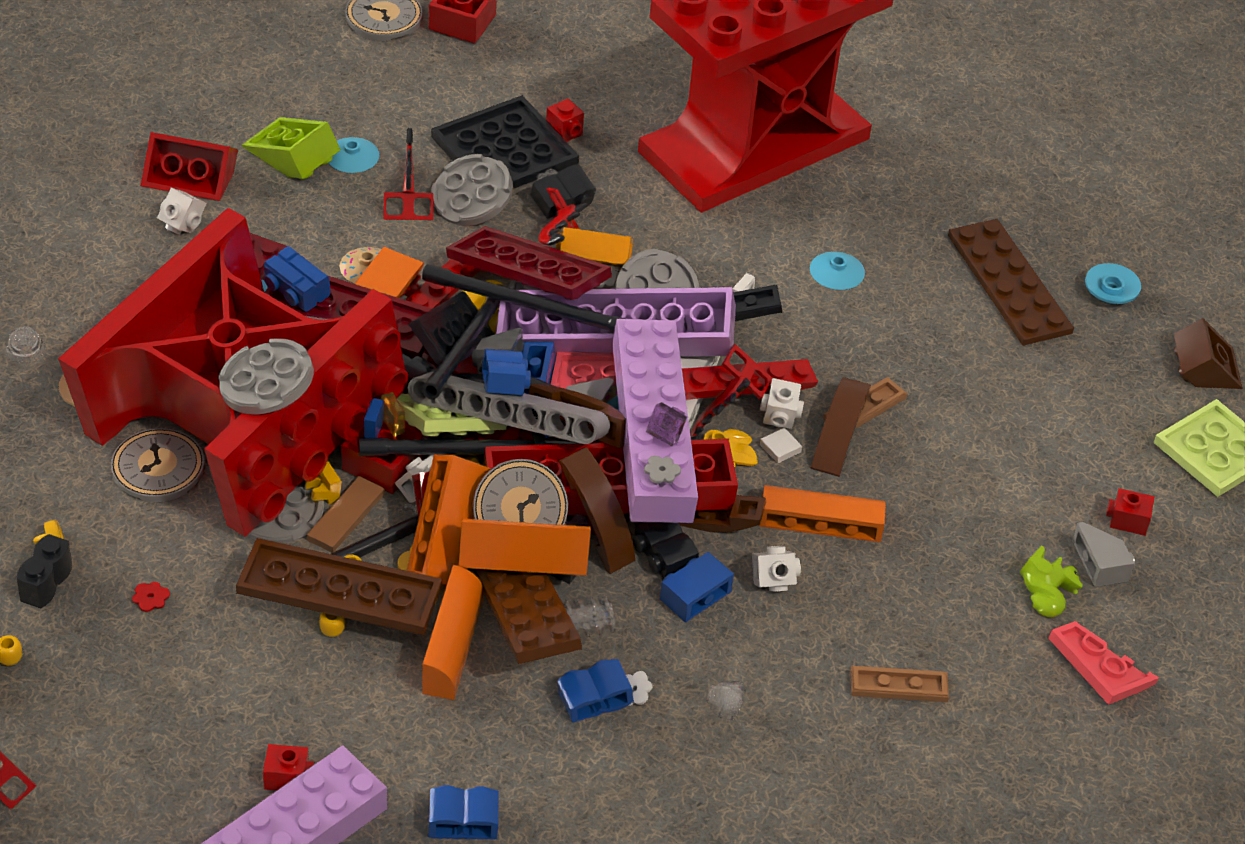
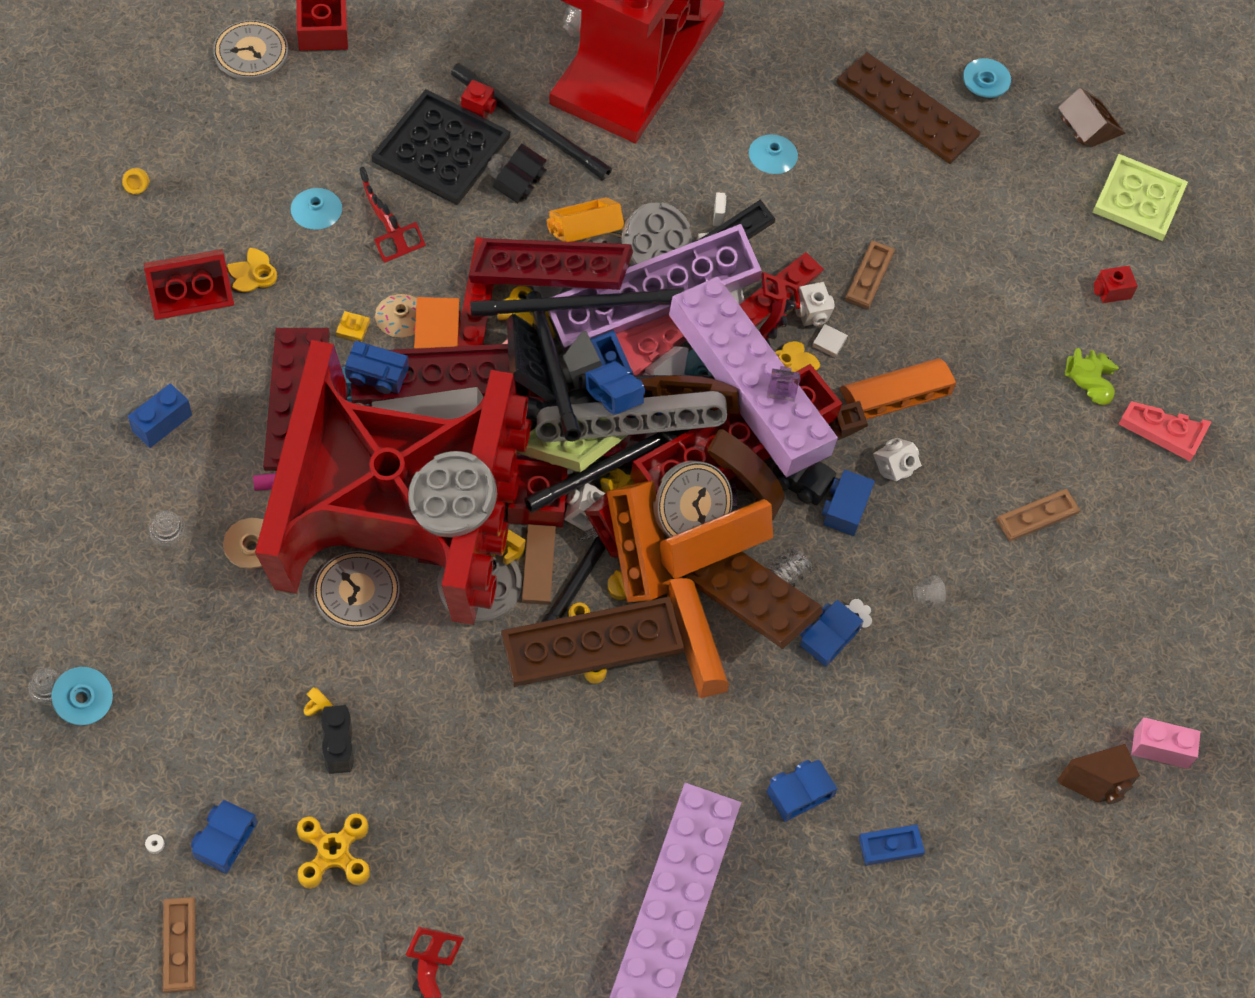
camera: 30 degrees left, 15 degrees up
(84, 255) = (160, 415): none -> blue brick
(154, 590) = (434, 725): red plant -> none
(181, 211) = (216, 334): white brick -> none
(202, 73) = (135, 181): none -> yellow tile
(258, 183) = (249, 272): none -> yellow plate
(284, 764) = (647, 820): red brick -> none
(294, 146) = (265, 222): lime slope -> none
(316, 253) = (353, 326): none -> yellow tile
(374, 418) = (526, 475): blue tile -> none
(393, 414) = (537, 462): clear yellow tile -> none
(472, 190) = (445, 203): light grey tile -> none
(565, 218) = (549, 203): red piece -> none
(642, 210) = (590, 162): none -> black piece
(662, 469) = (802, 428): light grey plant -> none
(840, 426) = (868, 303): reddish brown slope -> none
(1103, 555) = (1117, 333): light grey slope -> none

